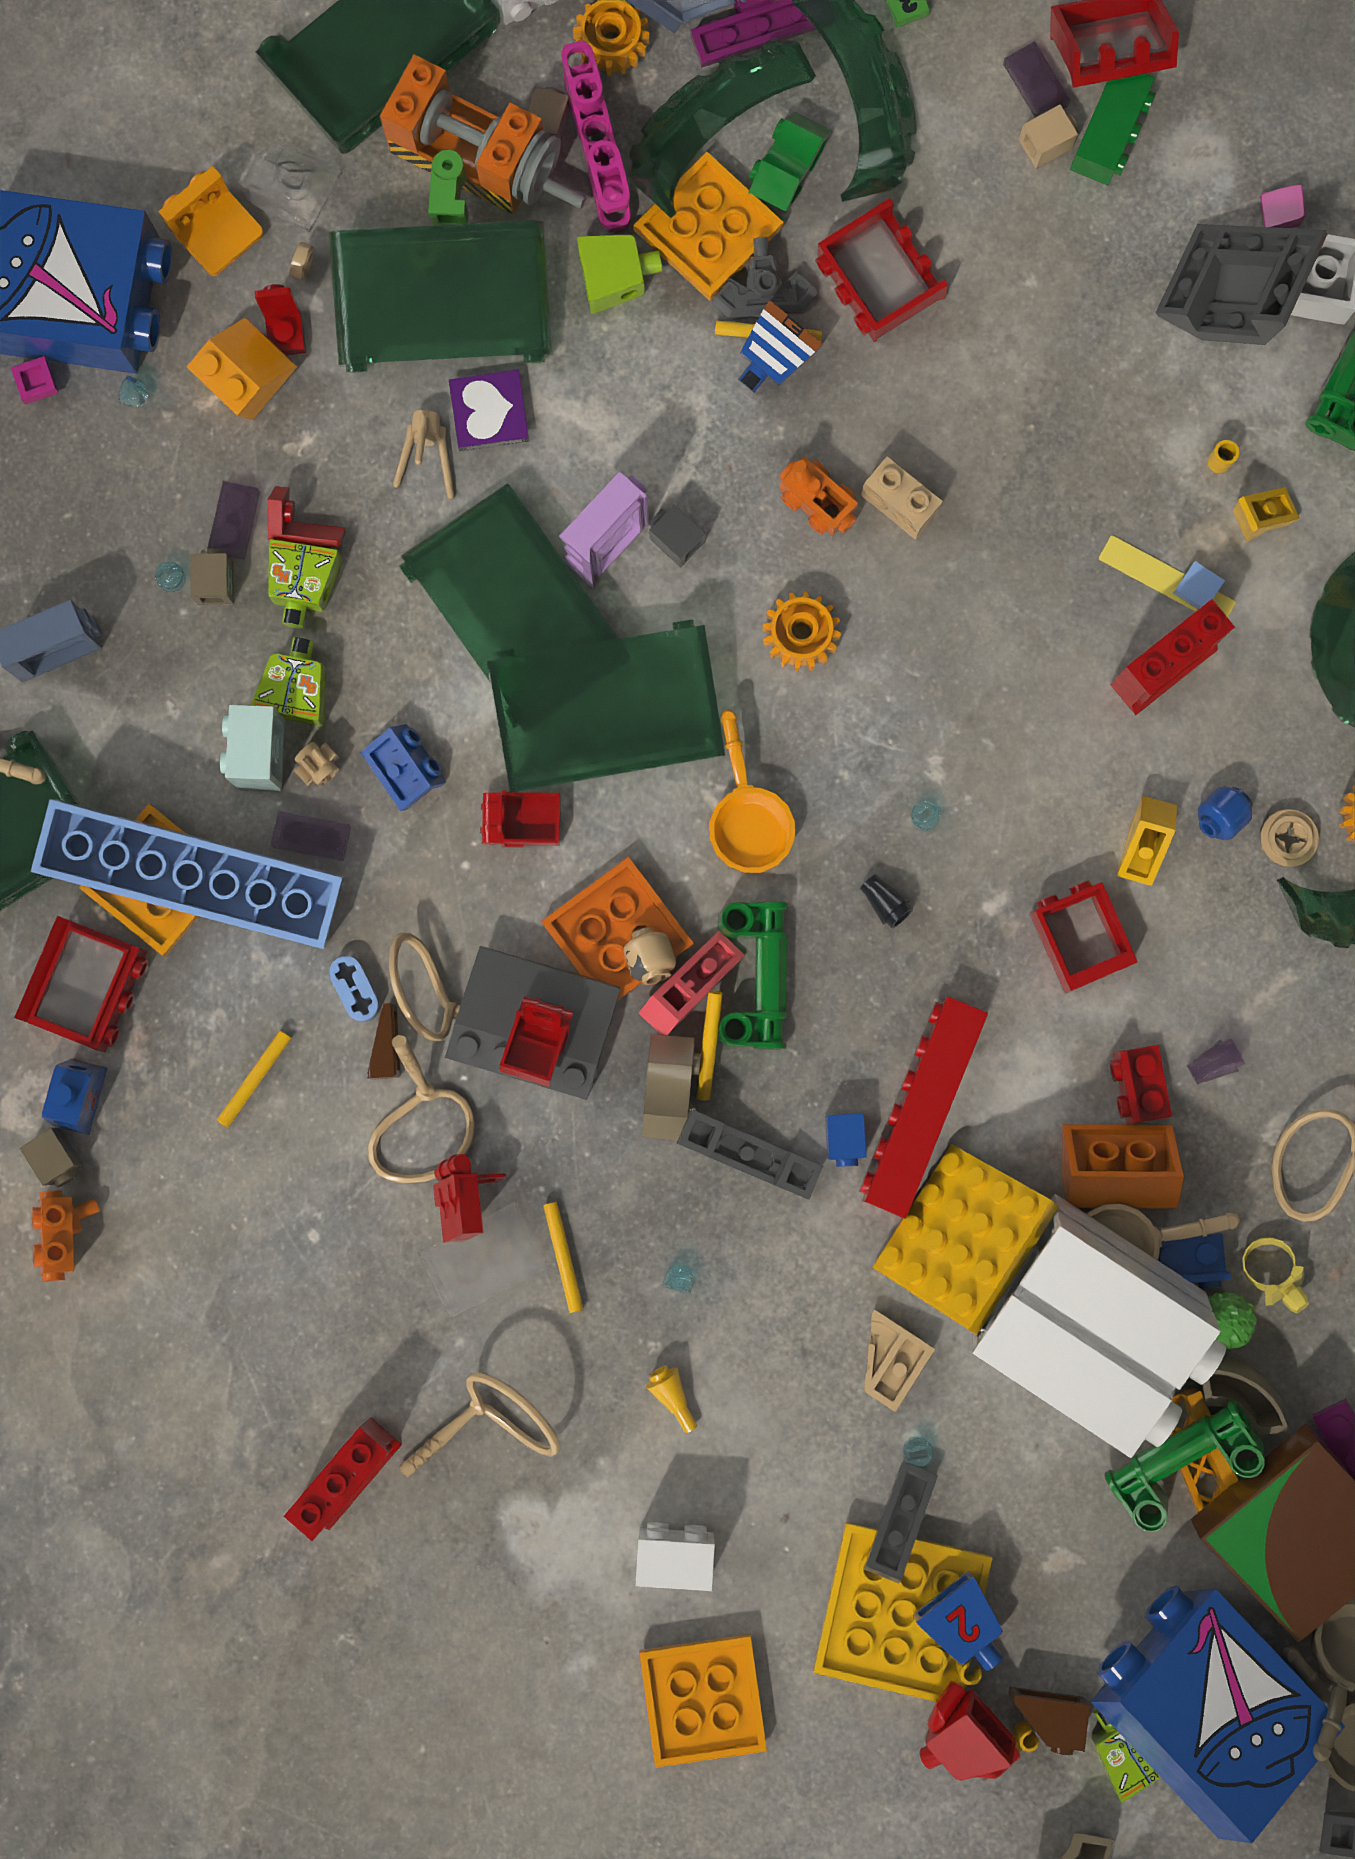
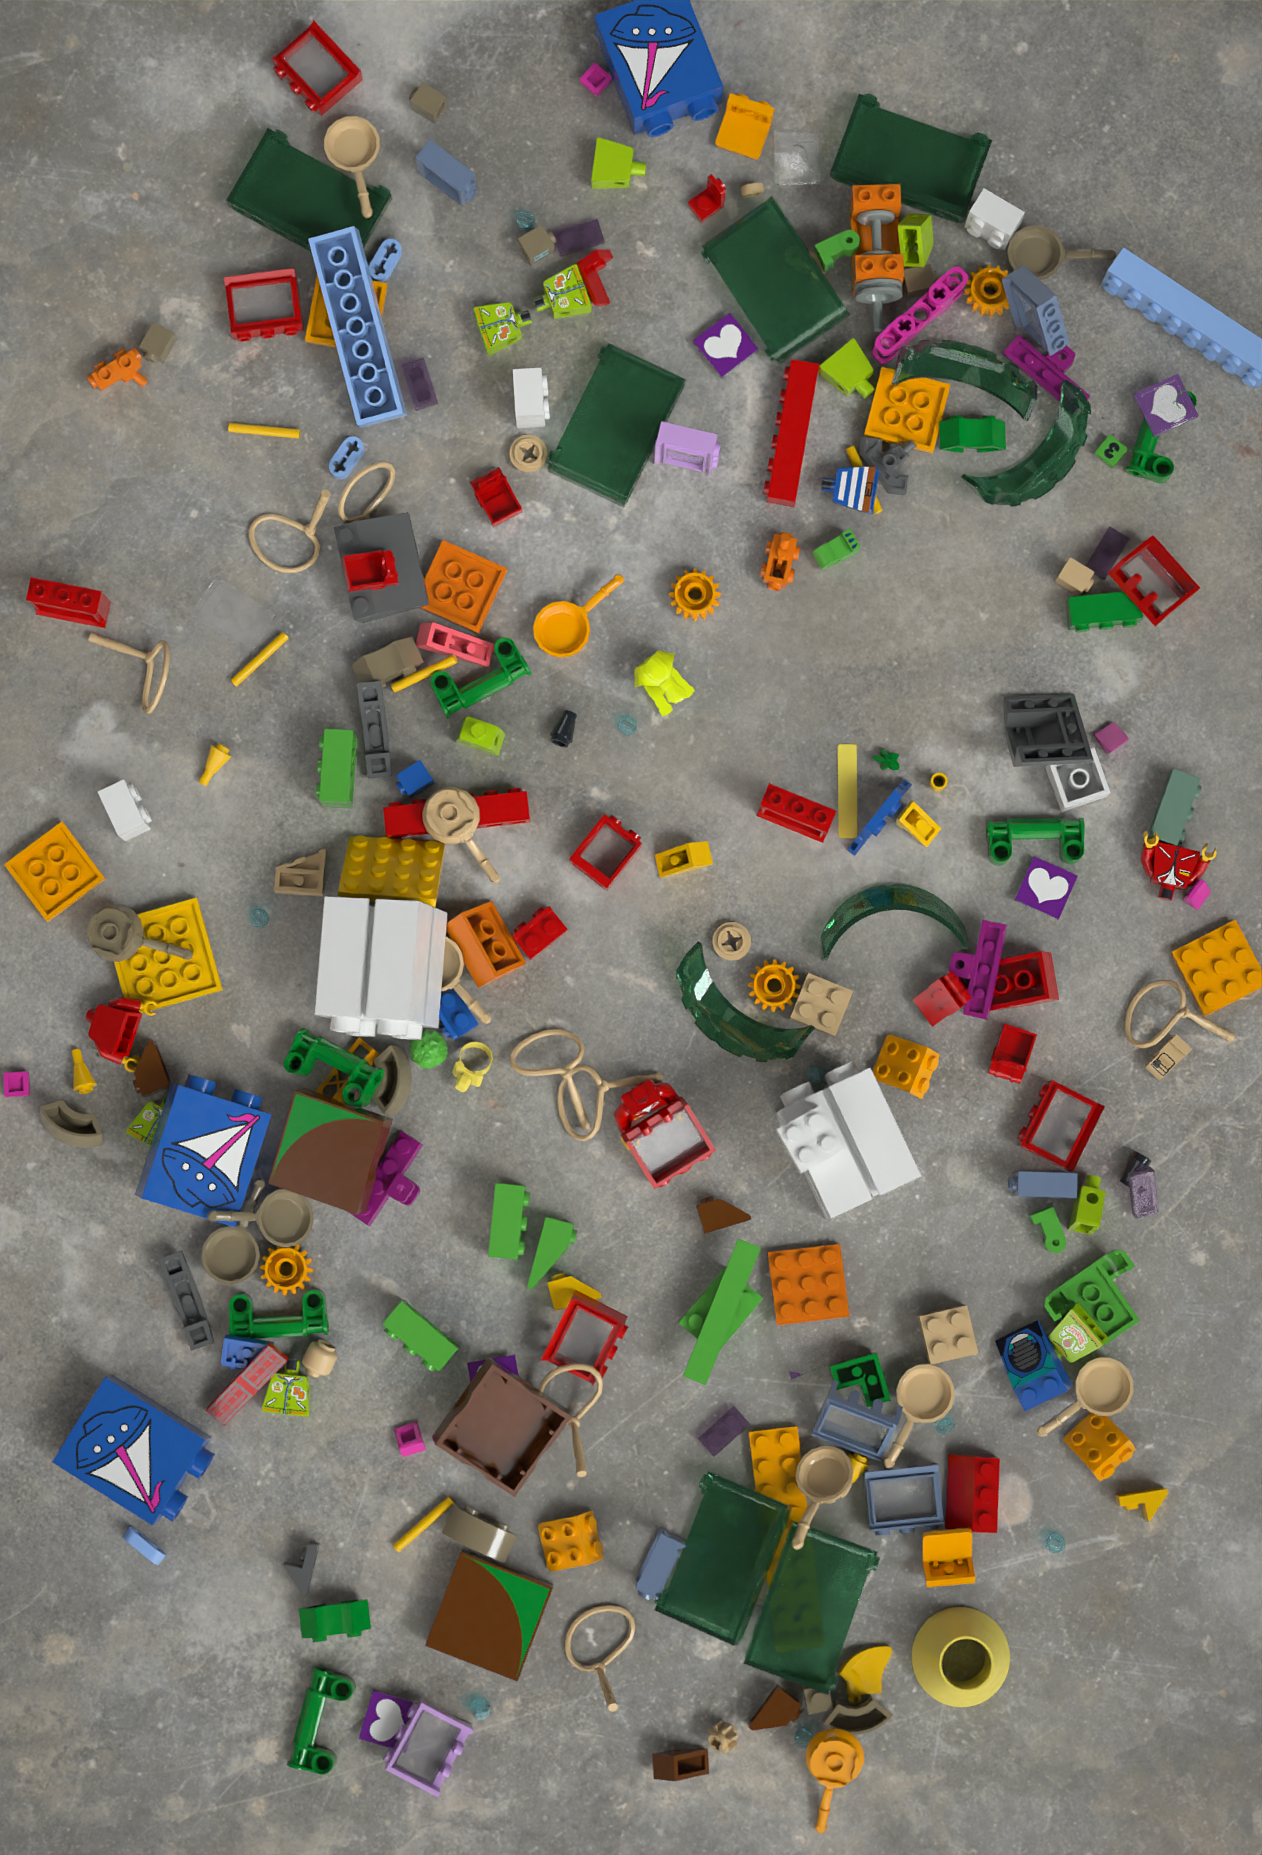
camera: 60 degrees right, 0 degrees up
(74, 1095) = (199, 335): blue torso -> none
(109, 793) = (380, 258): none -> light blue beam
(132, 392) = (620, 137): clear light blue hinge -> none
(164, 418) = (614, 165): none -> lime torso
(242, 368) = (668, 192): light orange slope -> none
(253, 747) = (450, 323): light aqua brick -> none
(316, 764) = (462, 363): tan gear -> none
(384, 1058) = (311, 495): reddish brown slope -> none
(403, 765) = (489, 413): blue bracket -> none
(416, 698) = (529, 394): none -> white brick
(424, 431) = (690, 314): tan plant -> none
(459, 1198) = (259, 579): red piece -> none
(470, 741) = (526, 443): none -> tan gear
(487, 80) = (915, 232): none -> lime torso
(605, 707) = (584, 505): clear green windscreen -> none
(649, 956) = (455, 610): tan head -> none
(655, 387) = (792, 434): none -> red brick
(676, 534) = (711, 492): dark grey brick -> none
(679, 1279) = (282, 730): clear light blue hinge -> none
(778, 1235) = (337, 768): none -> bright green brick
(834, 1019) = (480, 736): none -> lime torso
(840, 1661) = (118, 933): none -> dark tan piece
(843, 415) = (836, 550): none -> bright green leg
(879, 271) = (936, 523): window -> none
(882, 736) = (661, 678): none -> neon yellow piece
(900, 1522) = (213, 925): dark grey plate -> none
(901, 498) = (806, 609): tan brick -> none
(930, 1114) = (452, 818): none -> tan piece
(962, 1623) = (176, 989): blue torso -> none
(1007, 1817) = (82, 1078): none -> yellow cone
(1158, 506) = (887, 760): none -> green plant
(1198, 585) = (852, 810): light blue tile -> none
(1217, 1061) = (577, 968): clear purple cone -> none
(1224, 813) = (724, 895): blue head -> none
(1233, 551) = (877, 822): none -> blue wing

